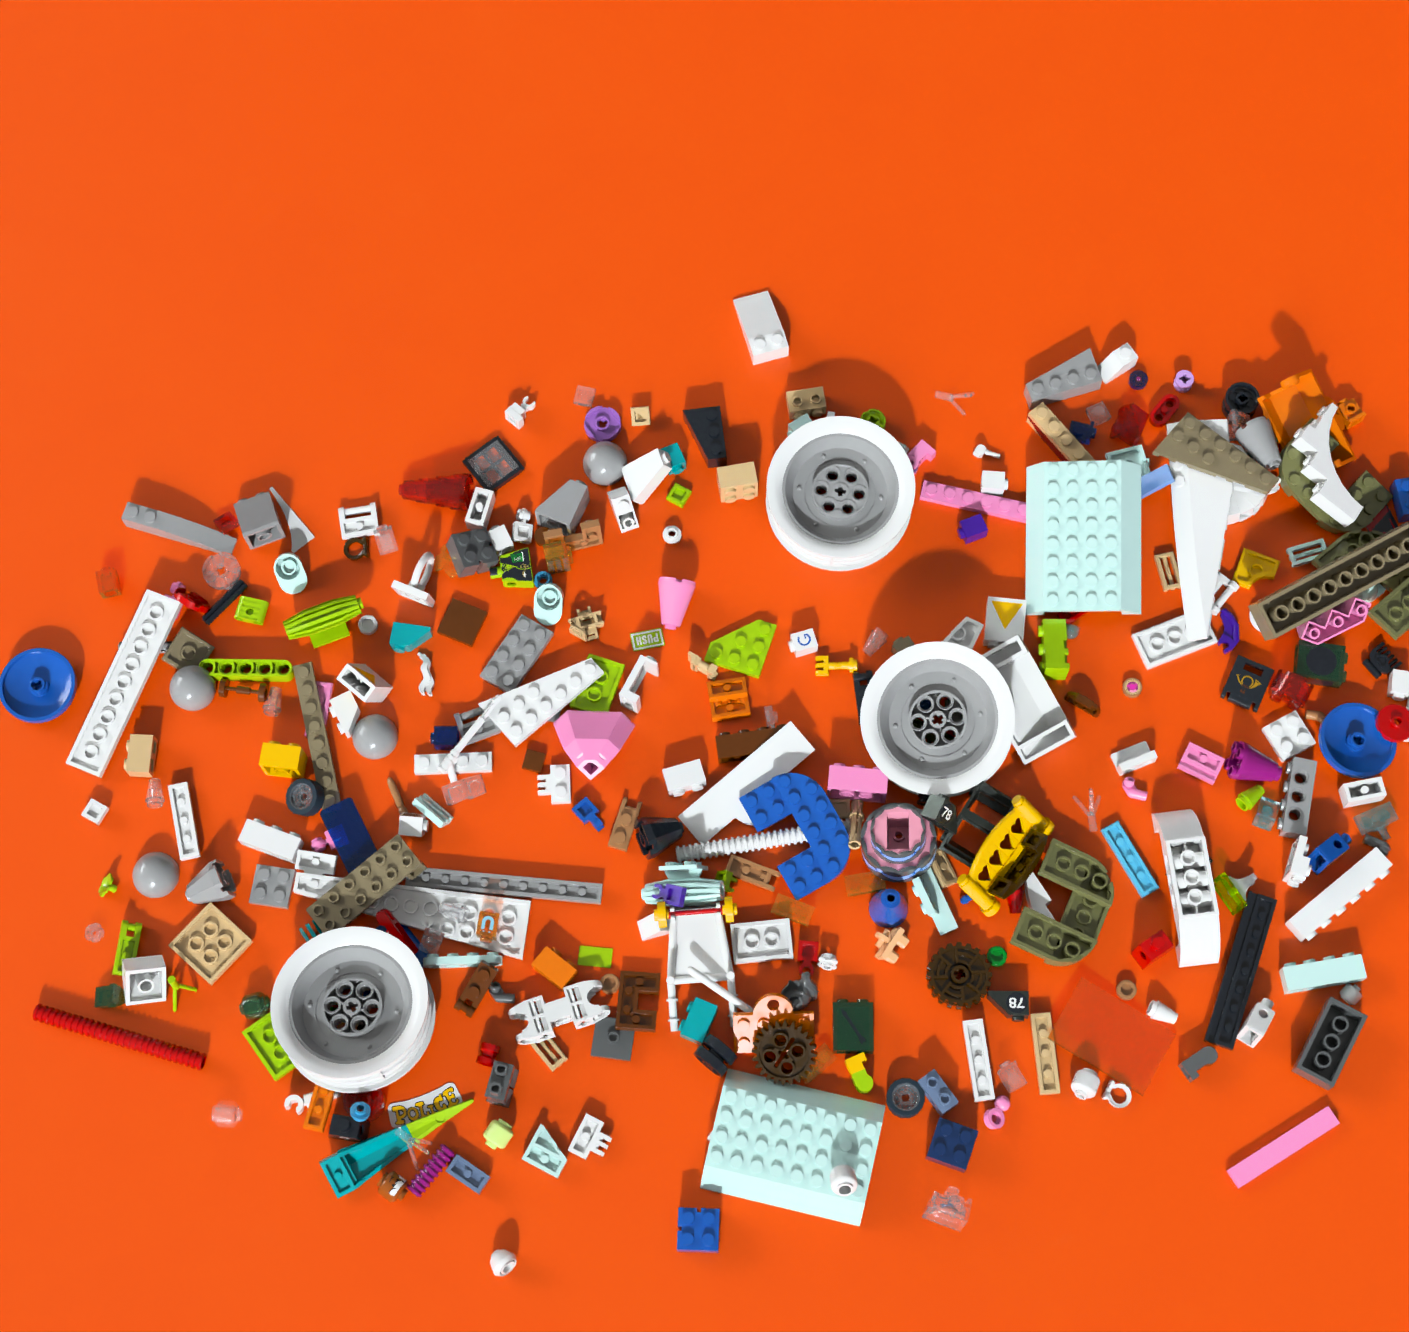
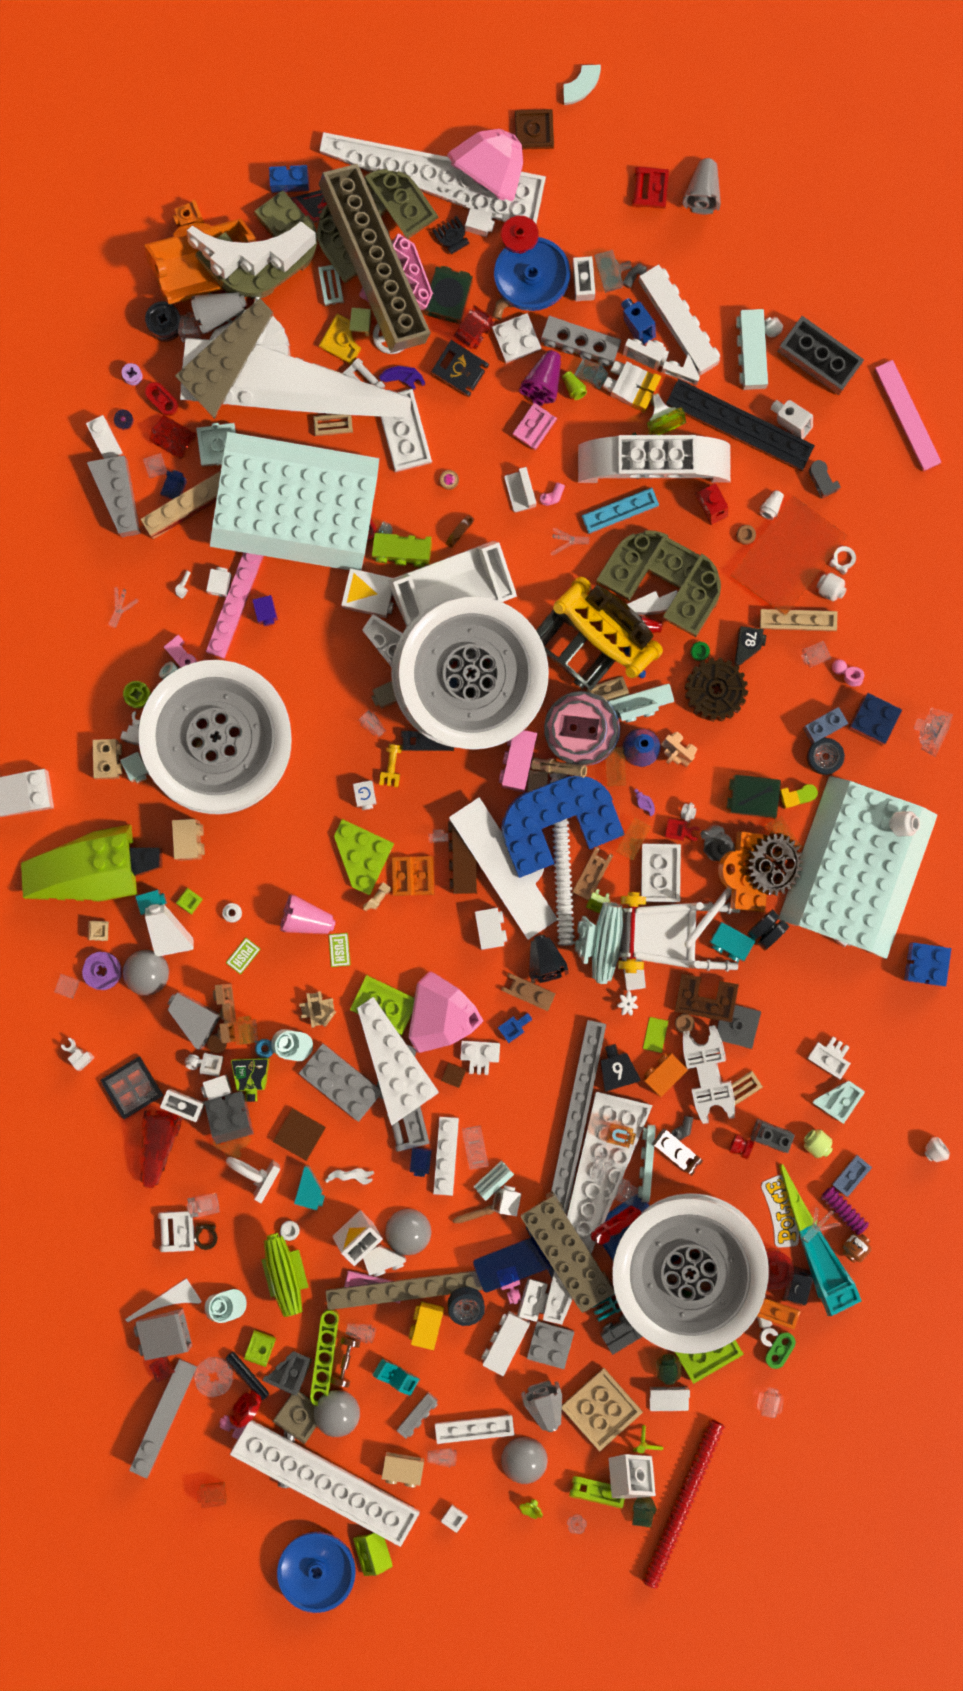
camera: 85 degrees left, 15 degrees up
(57, 739) = (372, 1554): none -> lime panel
(197, 766) = (418, 1413): none -> light grey piece
(225, 1011) = (669, 1398): none -> white panel
(229, 640) = (290, 1373): none -> dark grey wing
(231, 742) = (396, 1376): none -> teal slope
(282, 1118) = (781, 1350): none -> bright green plate
(283, 947) = (619, 1334): none -> dark grey brick
(357, 1115) = (794, 1273): dark azure plate -> none
(452, 757) = (444, 1155): white piece -> none
(555, 919) = (617, 1069): none -> black torso
(623, 509) = (199, 959): white slope -> none
(627, 694) = (402, 977): white panel -> none
(627, 925) = (627, 1003): none -> white plant
(631, 551) = (243, 955): none -> sticker
(671, 894) = (613, 952): dark purple plate -> none
(697, 393) = (84, 869): none -> lime wedge
(832, 918) = (645, 802): none -> medium lavender piece
(941, 812) = (564, 683): pearl dark grey slope -> none
(978, 1060) = (797, 683): white plate -> none
(1156, 480) = (240, 418): medium blue tile -> none
(1261, 848) = (633, 385): none -> white hips
(1275, 580) = (360, 320): none -> yellowish green panel
(1285, 907) = (686, 373): none -> white slope

